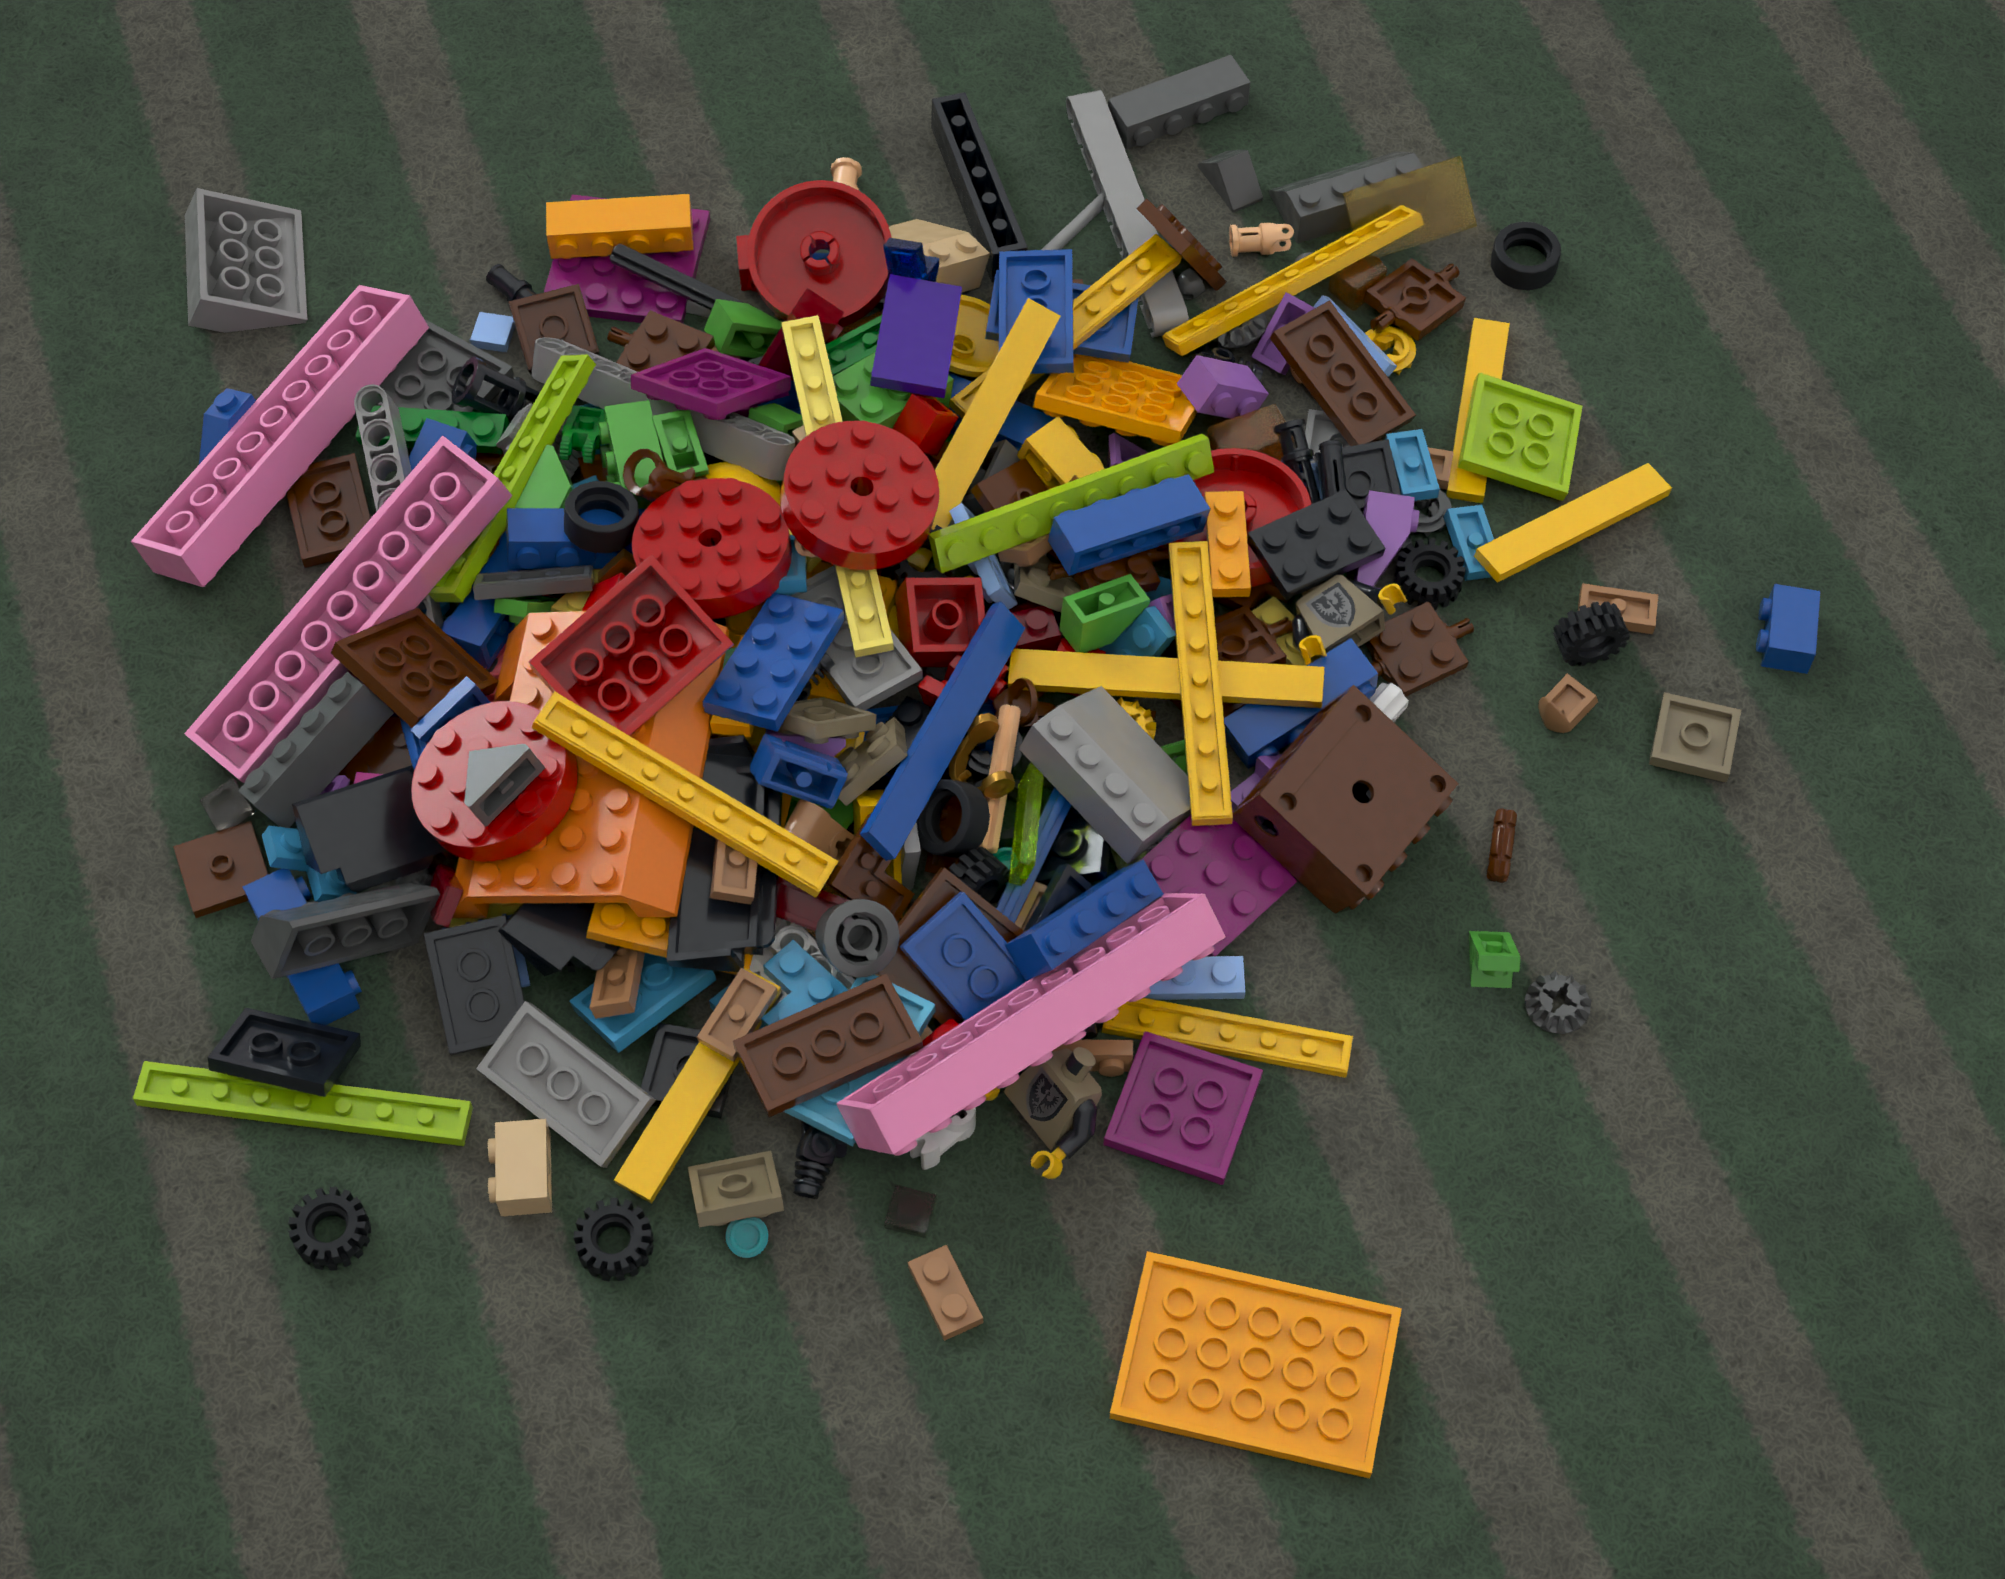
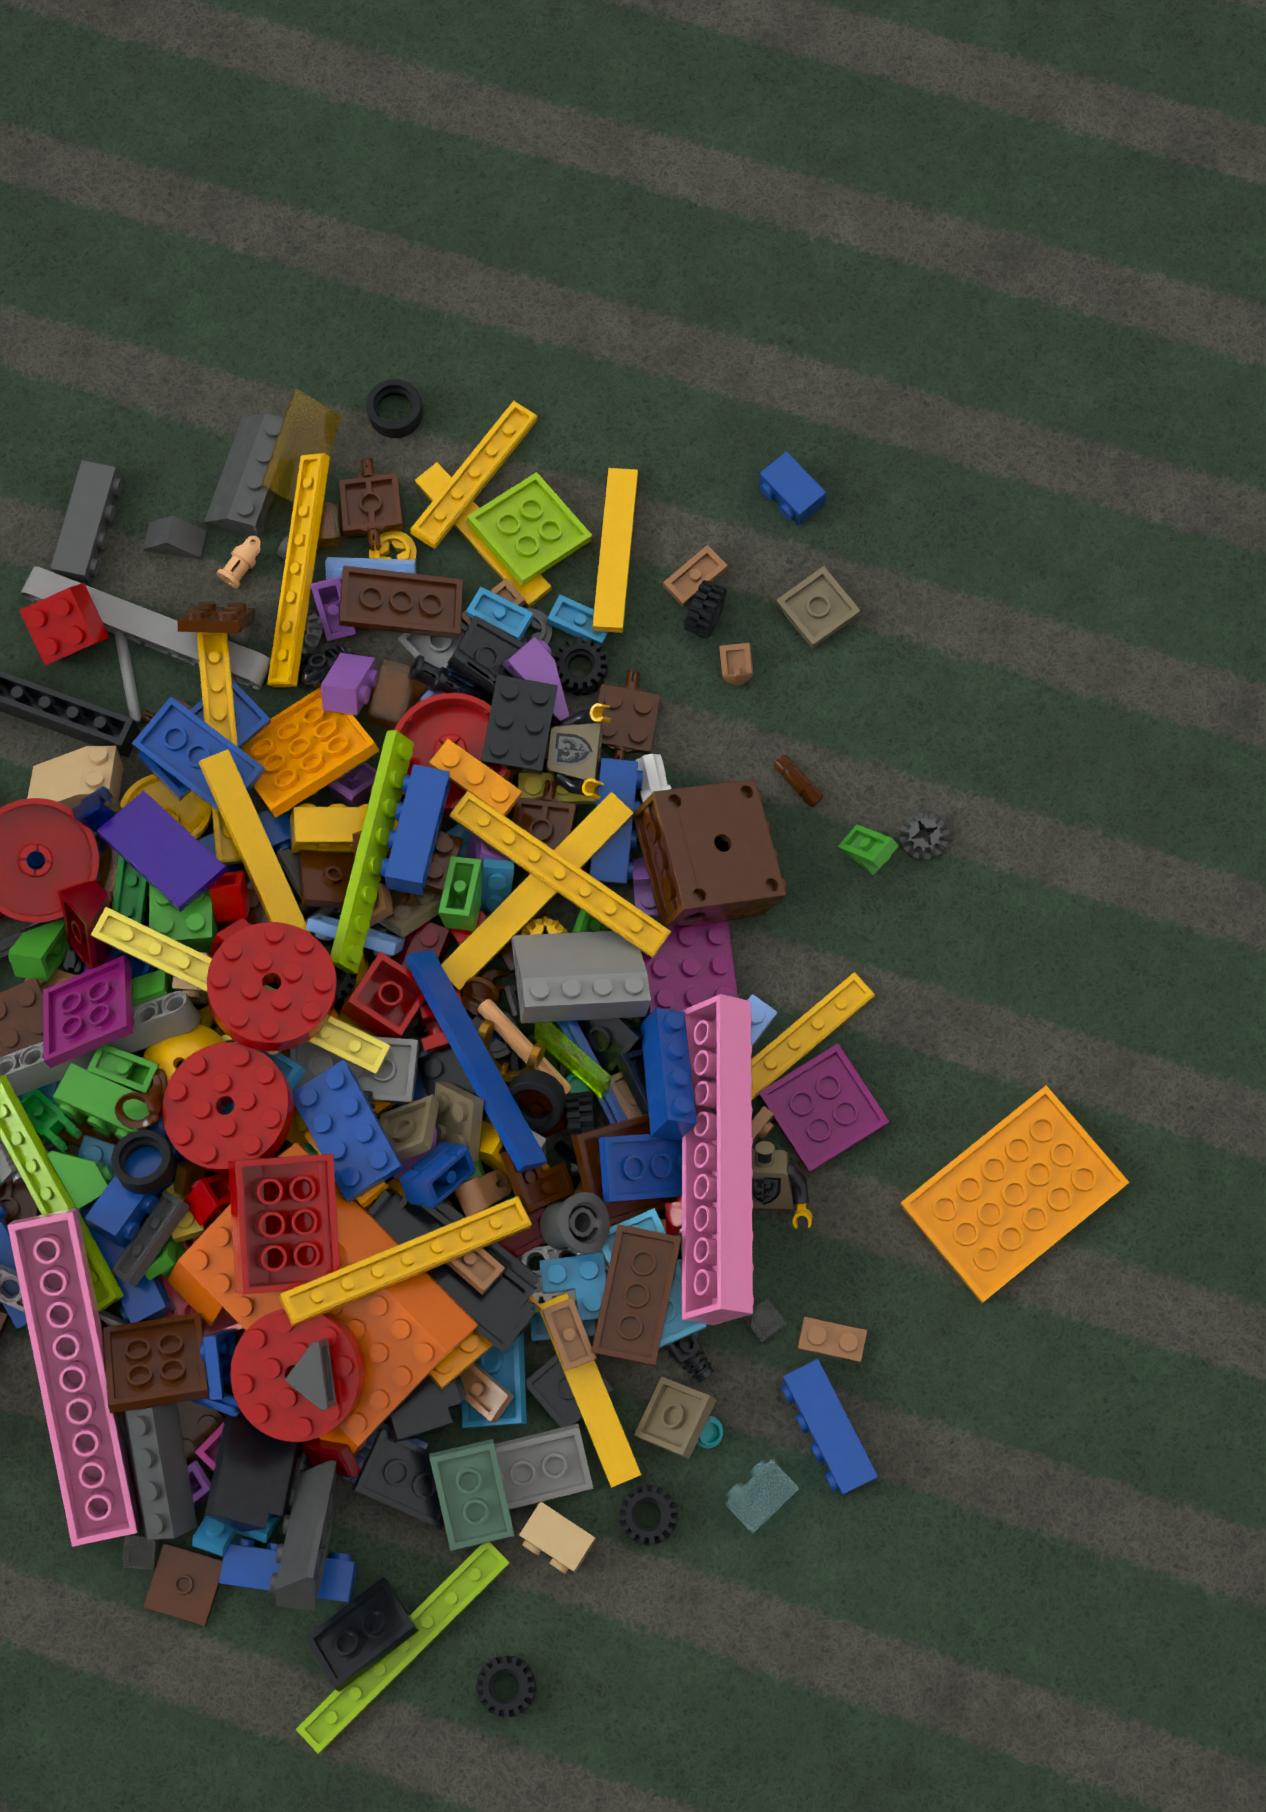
camera: 45 degrees left, 15 degrees up
(501, 1046) = (471, 1494): none -> sand green plate
(720, 1333) = (761, 1495): none -> clear light blue bracket
(845, 1352) = (829, 1427): none -> blue brick
(1066, 139) = (64, 623): none -> red brick
(1527, 358) = (473, 475): none -> yellow tile

